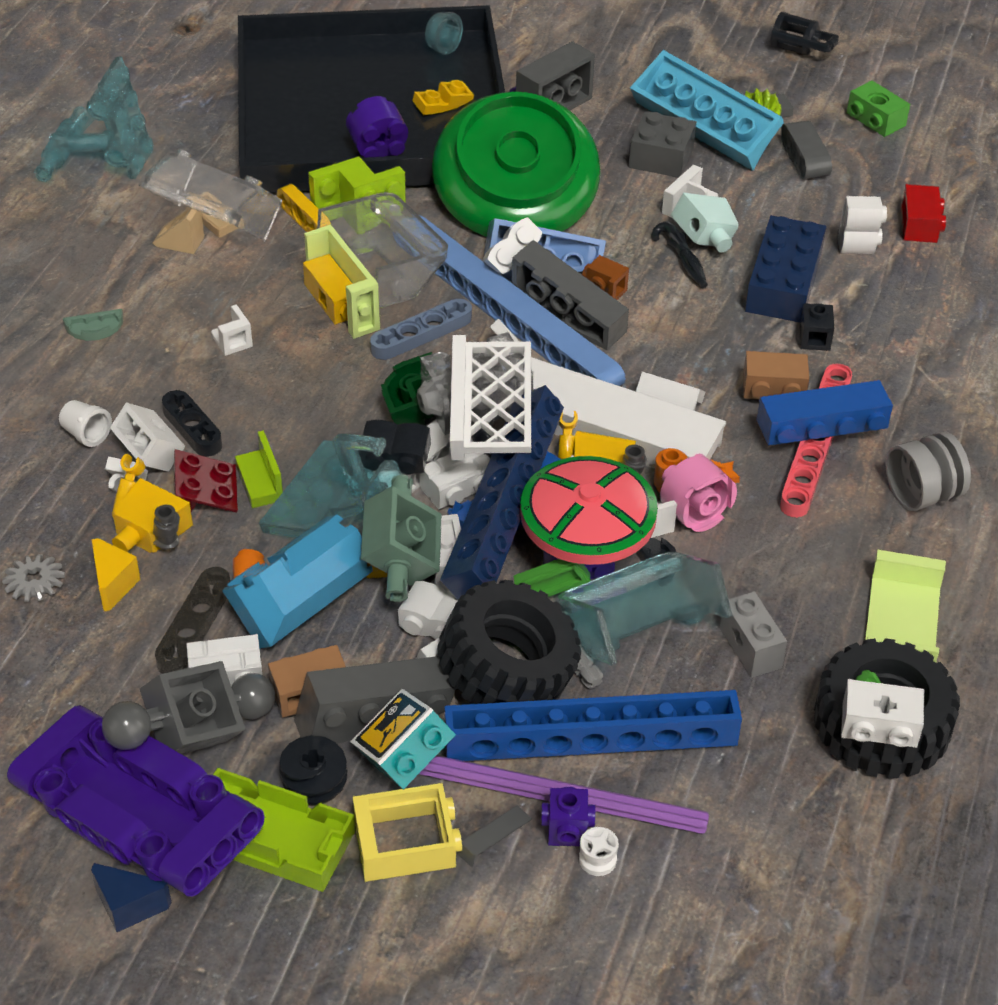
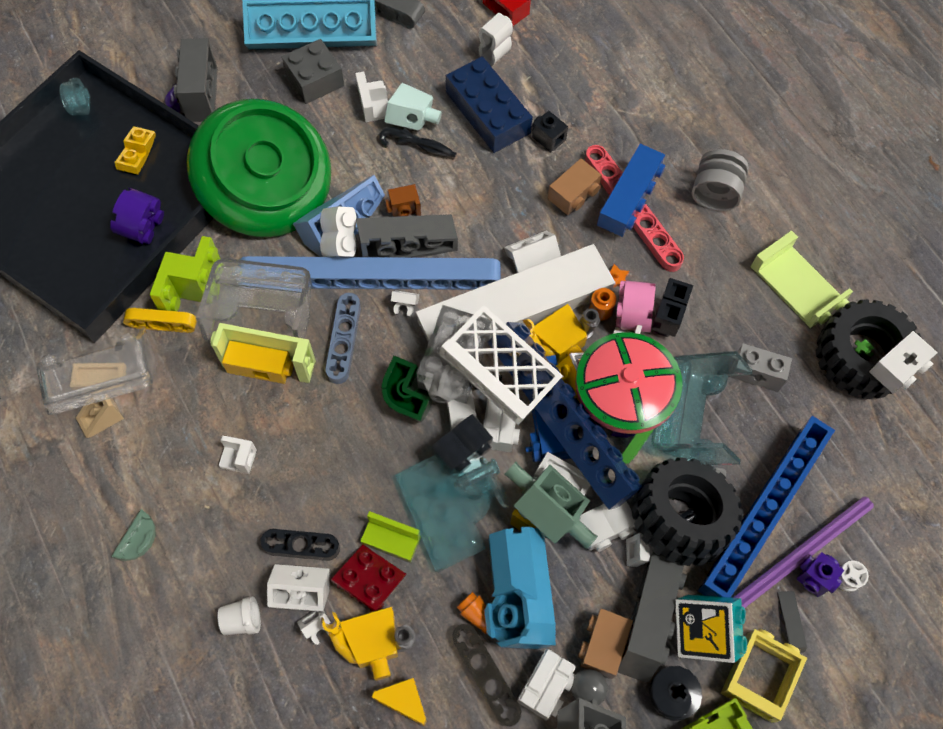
camera: 50 degrees left, 20 degrees up
(727, 517) = (672, 308): none -> black hips

